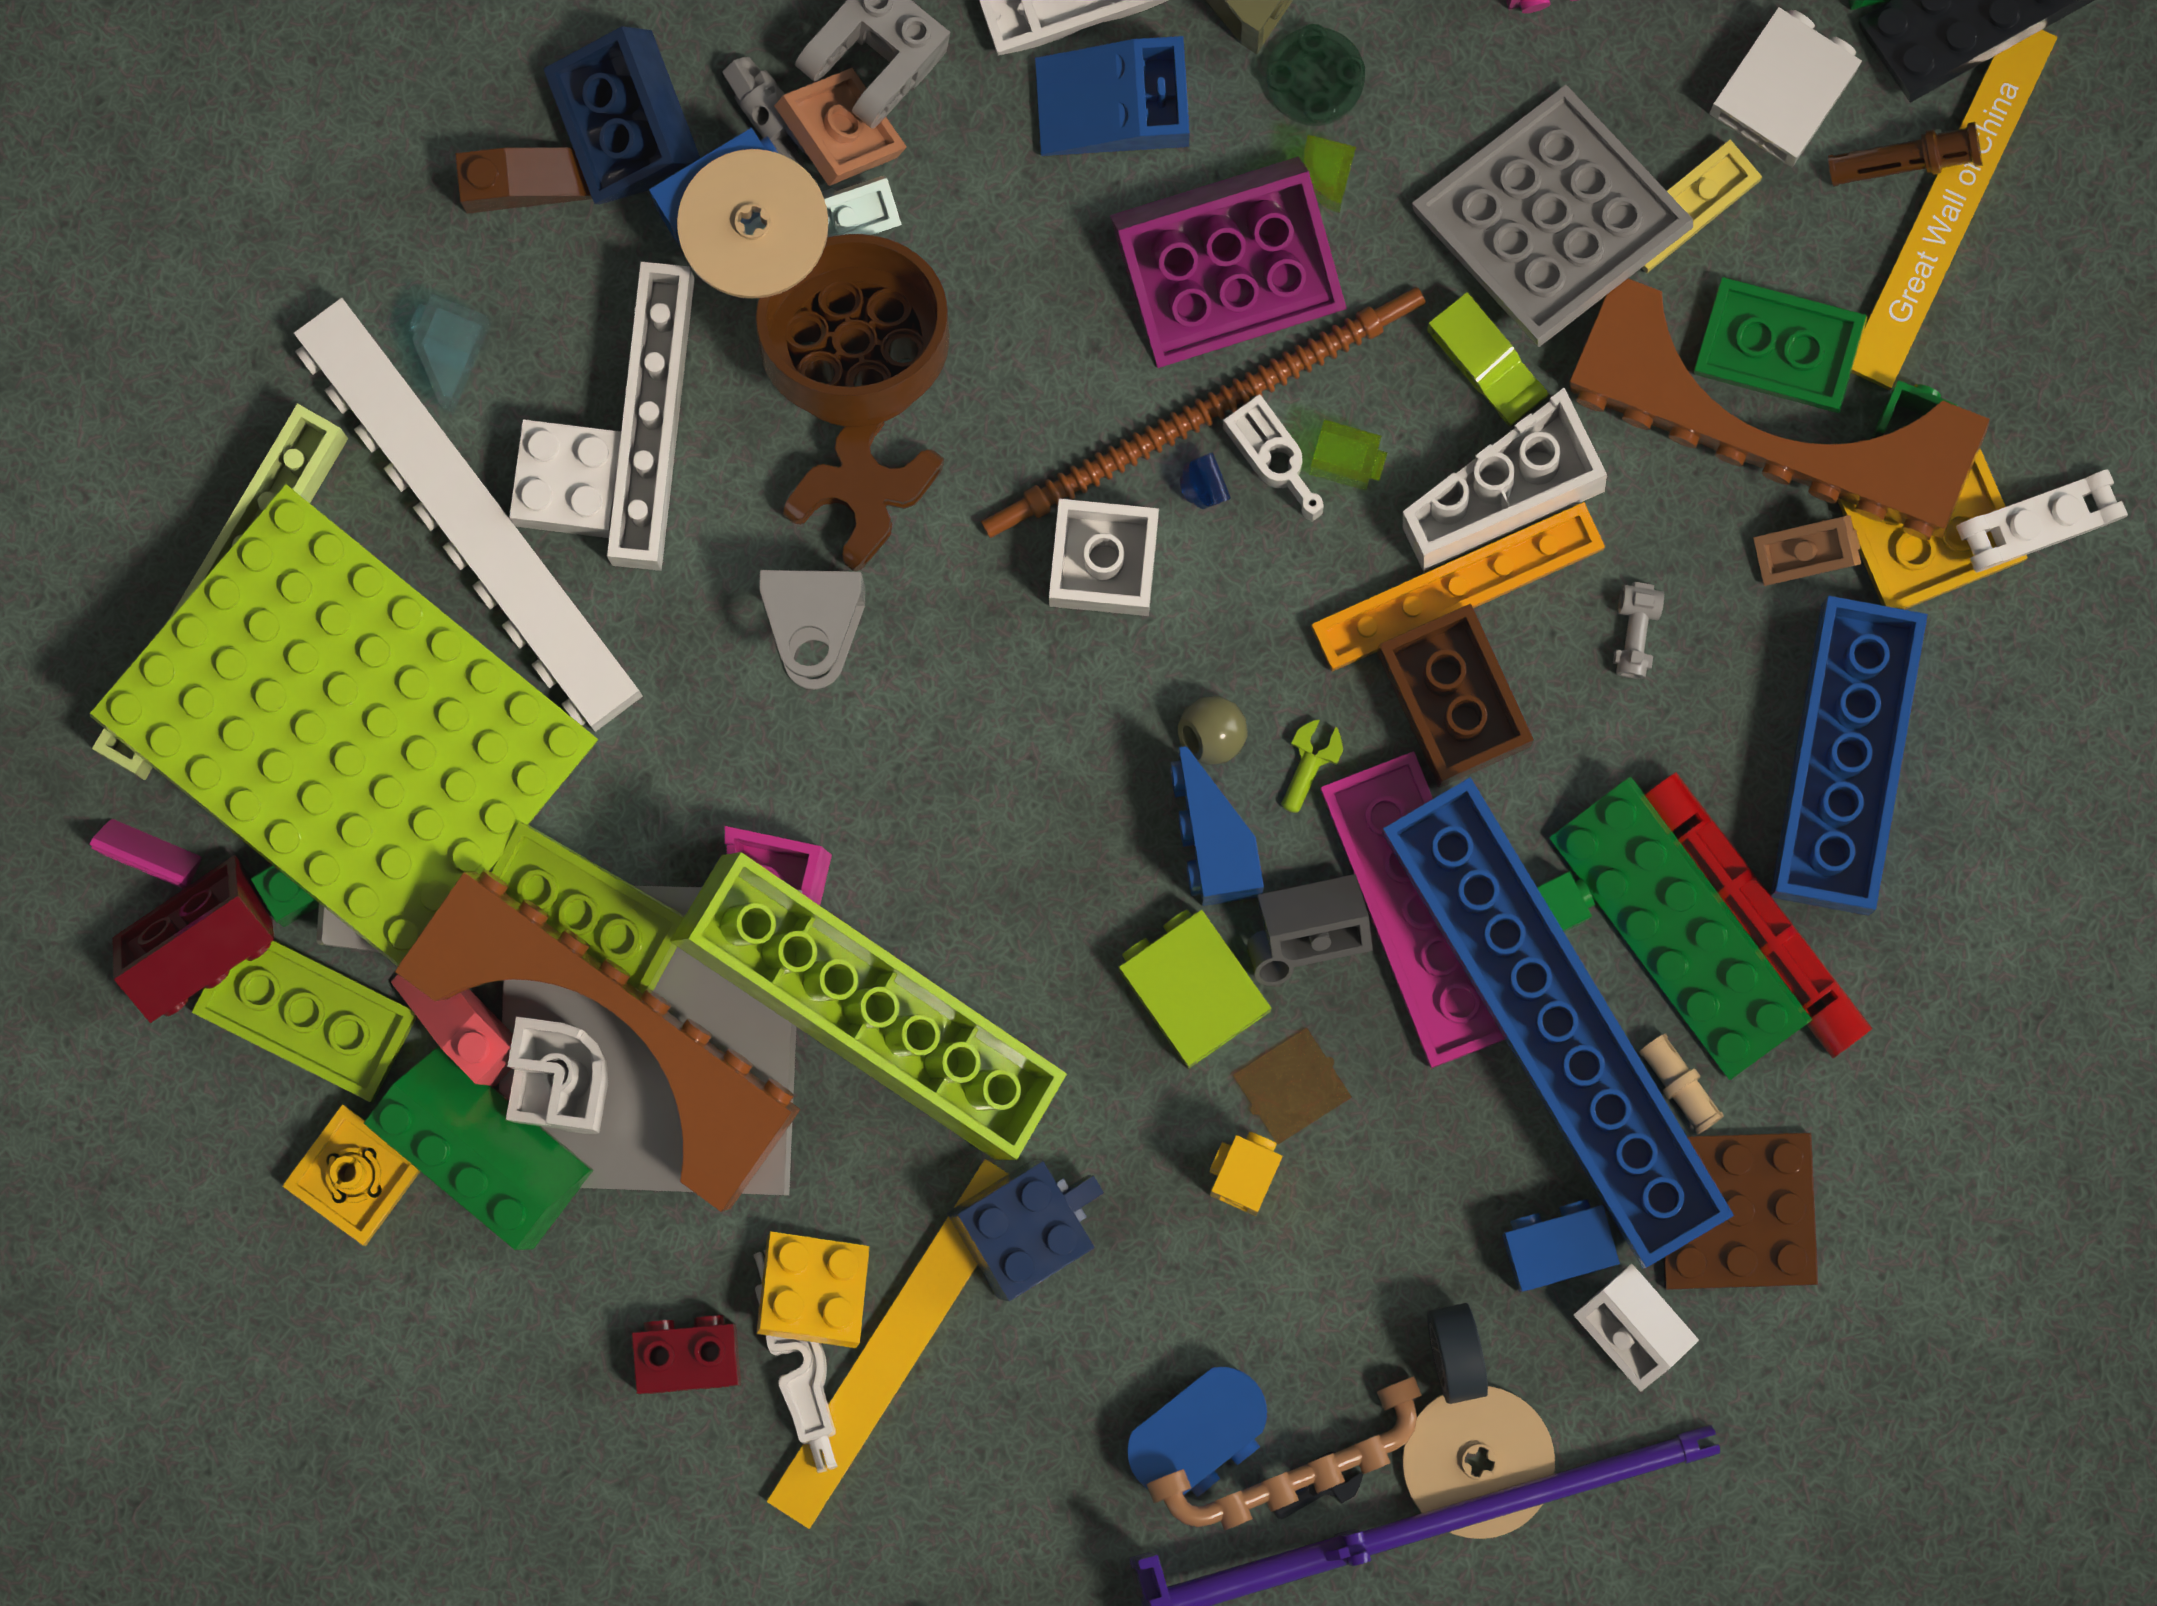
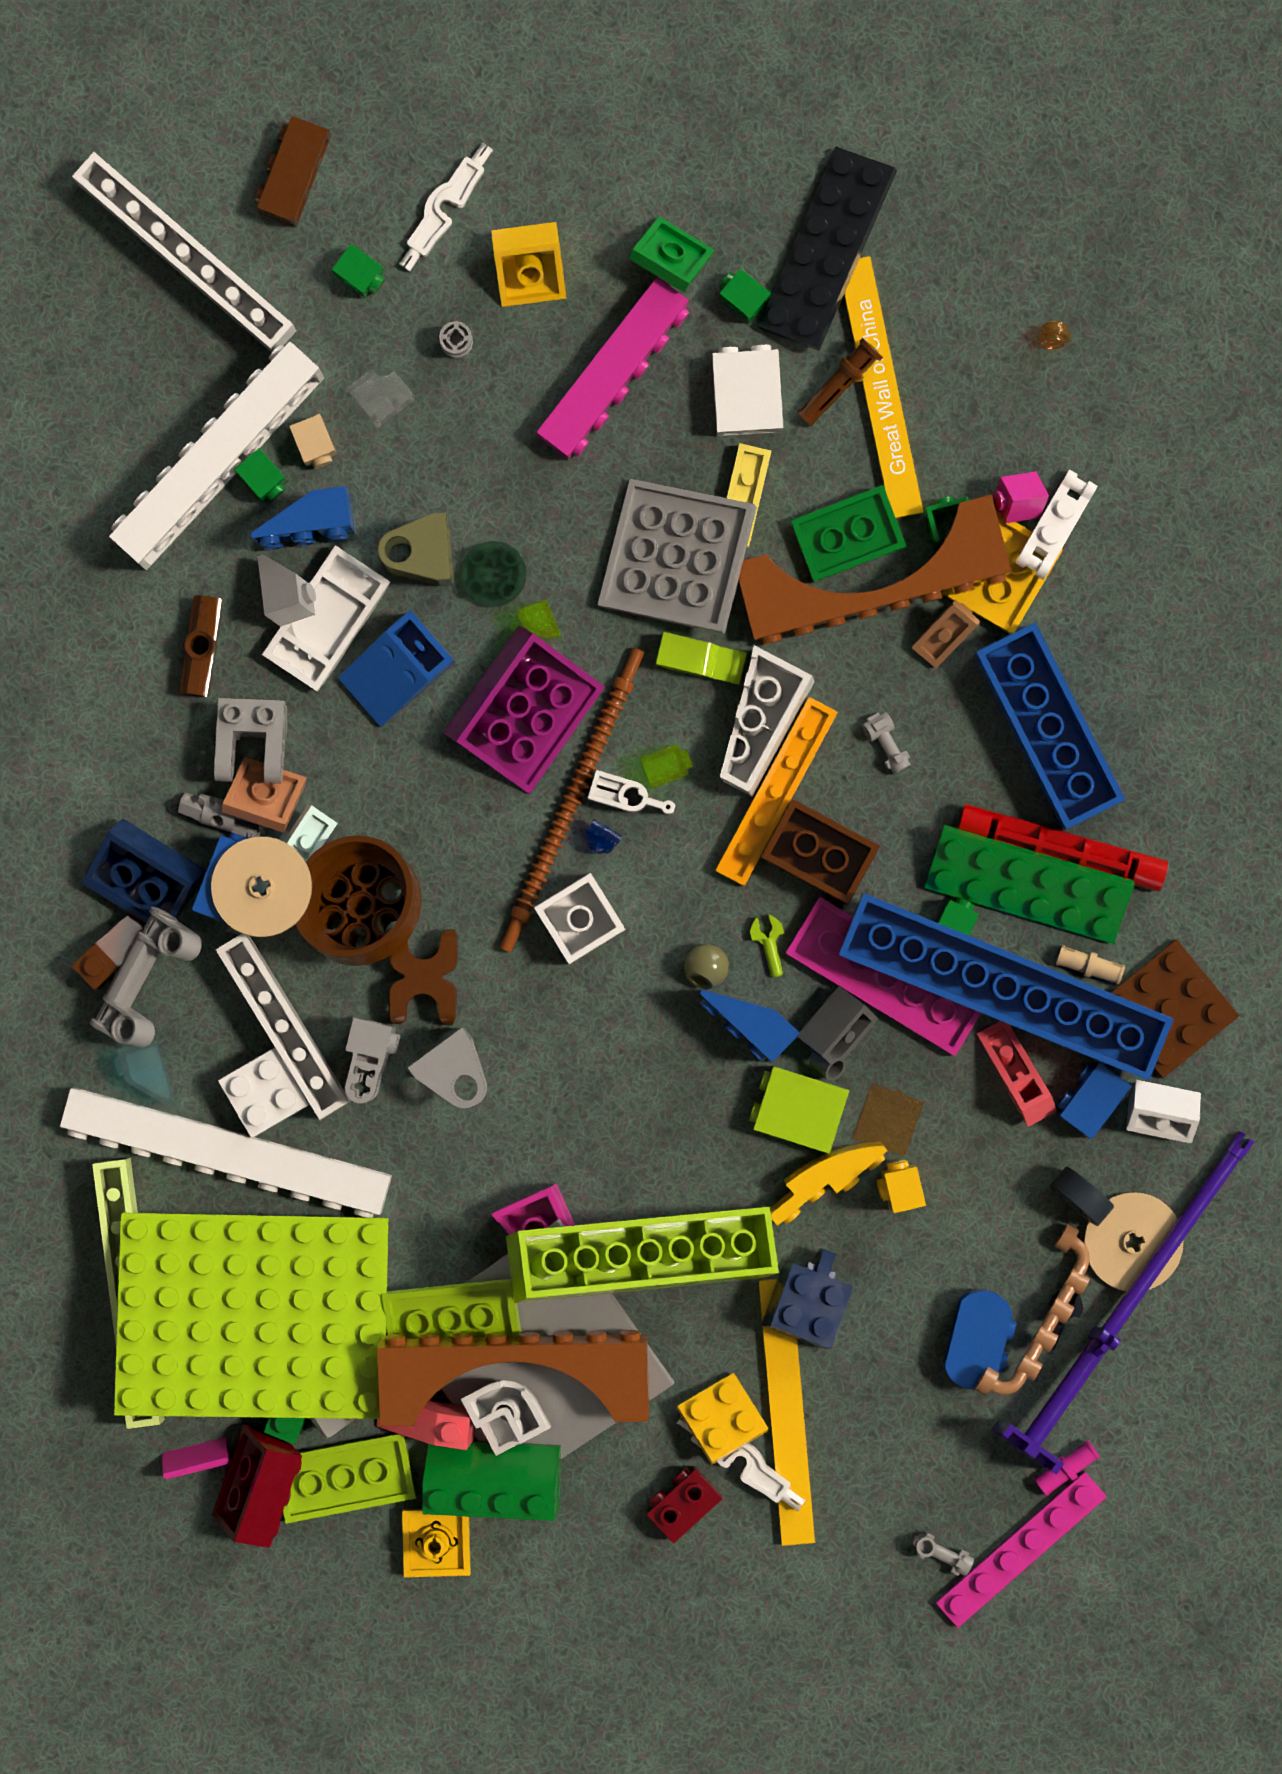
camera: 40 degrees left, 5 degrees up
(588, 193) = (162, 935): none -> light grey piece
(734, 521) = (371, 1048): none -> light grey brick
(1183, 1095) = (837, 1169): none -> yellow slope
(1492, 1147) = (1017, 1073): none -> coral slope
(2022, 454) = (1020, 497): none -> dark pink brick

